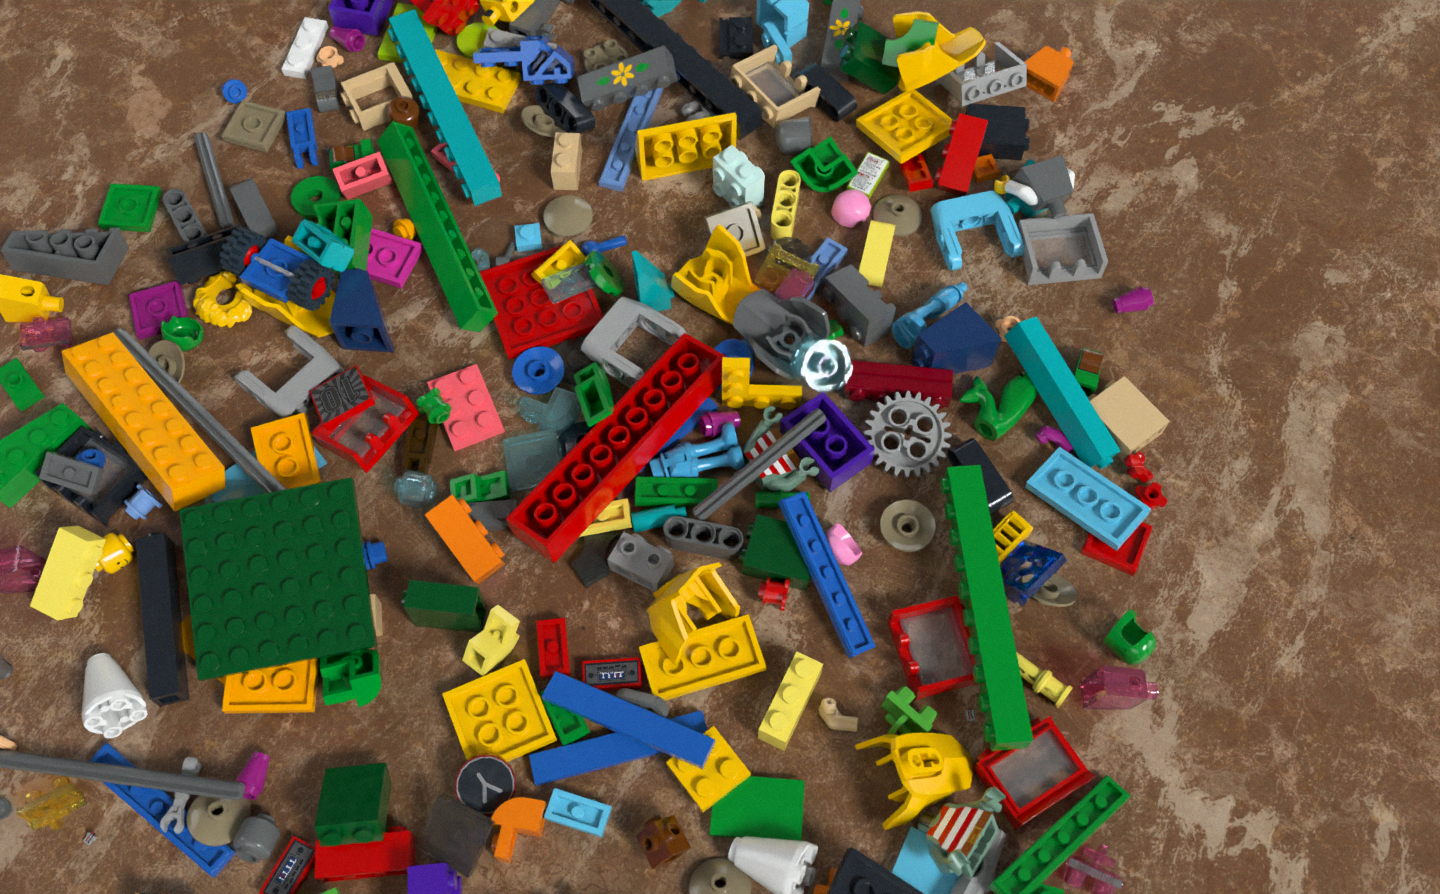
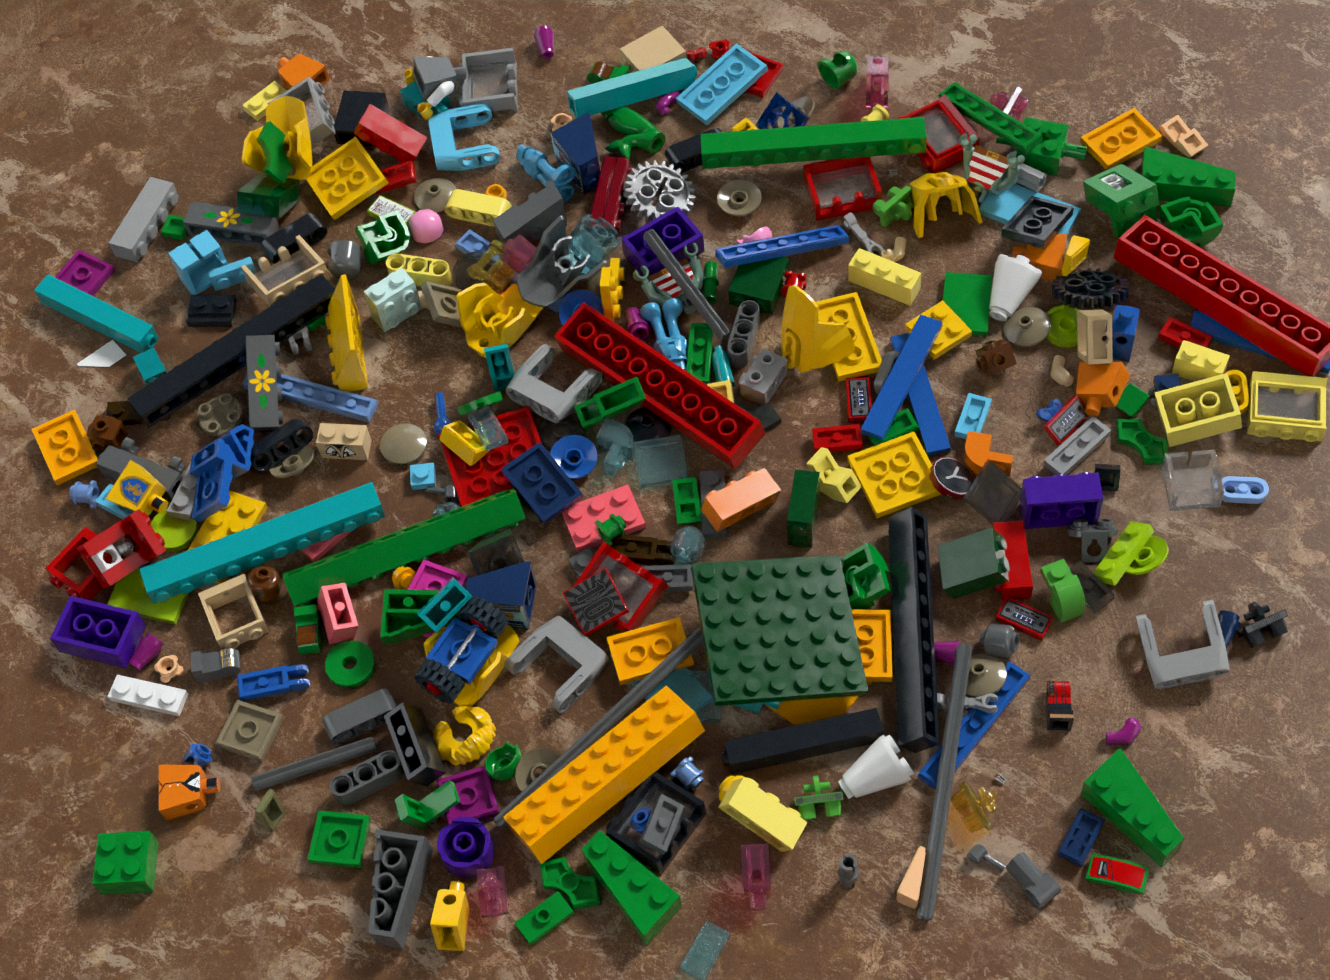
camera: 80 degrees left, 5 degrees down
(58, 391) = (578, 888): none -> green tile
(91, 633) = (831, 800): none -> bright green hips
(93, 307) = (453, 848): none -> dark purple brick
(134, 51) = (125, 862): none -> green brick
(144, 268) = (428, 809): none -> green bracket
(160, 146) = (269, 811): none -> olive slope
(201, 82) = (184, 790): none -> orange torso
(279, 734) = (913, 631): none -> black brick
(382, 477) = (676, 576): none -> dark grey plate
(411, 389) = (580, 561): none -> dark grey plate
(414, 309) = (495, 552): none -> clear smoke slope
(498, 338) = (542, 483): none -> dark blue plate
(878, 662) = (851, 223): none -> light grey piece
(898, 270) = (497, 191): none -> light orange plate
(1014, 43) = (257, 105): none -> light yellow plate

